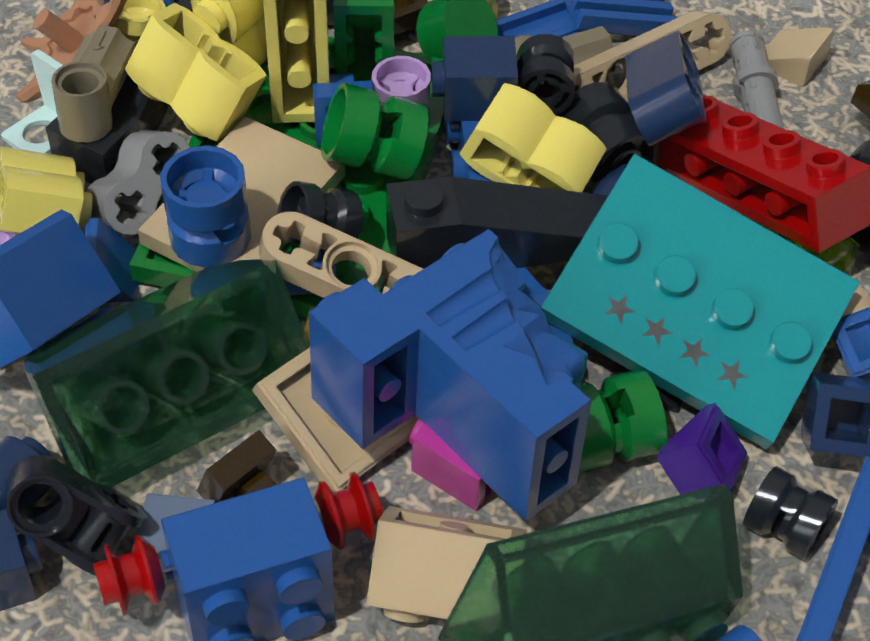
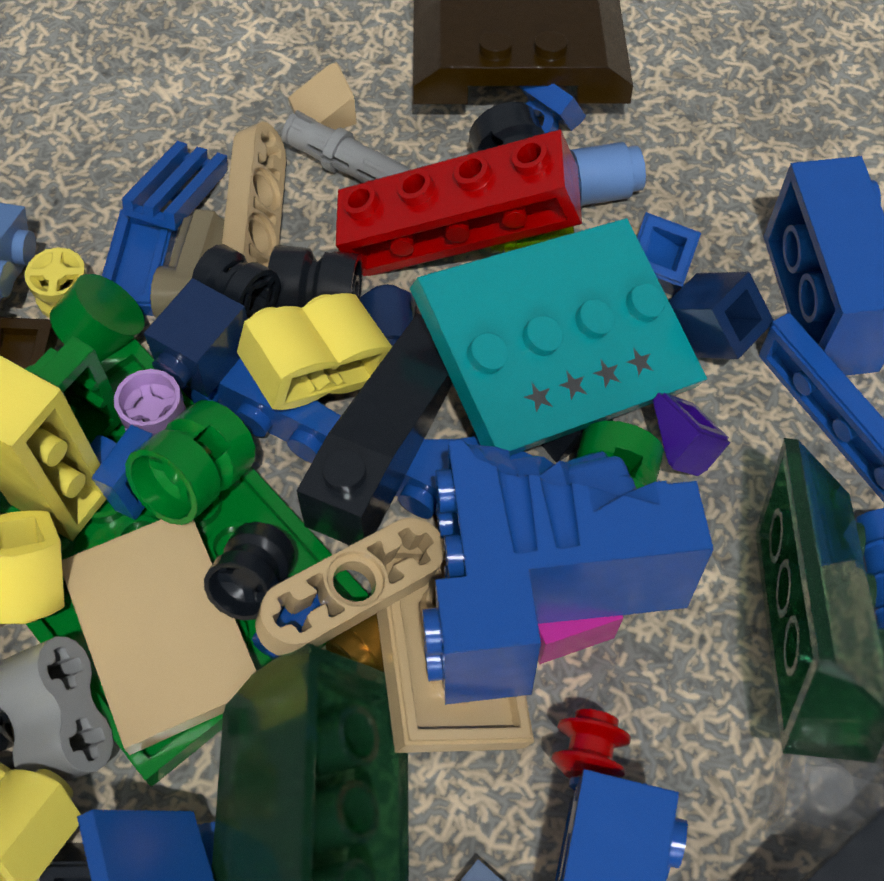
camera: 55 degrees left, 10 degrees up
(115, 256) = (121, 788): blue slope -> none
(206, 205) = (175, 665): blue wheel -> none
(239, 470) = (470, 819): dark brown tile -> none
(426, 561) = (690, 698): tan brick -> none
(664, 89) = (330, 209): dark blue beam -> none
(790, 512) = (778, 409): black wheel -> none

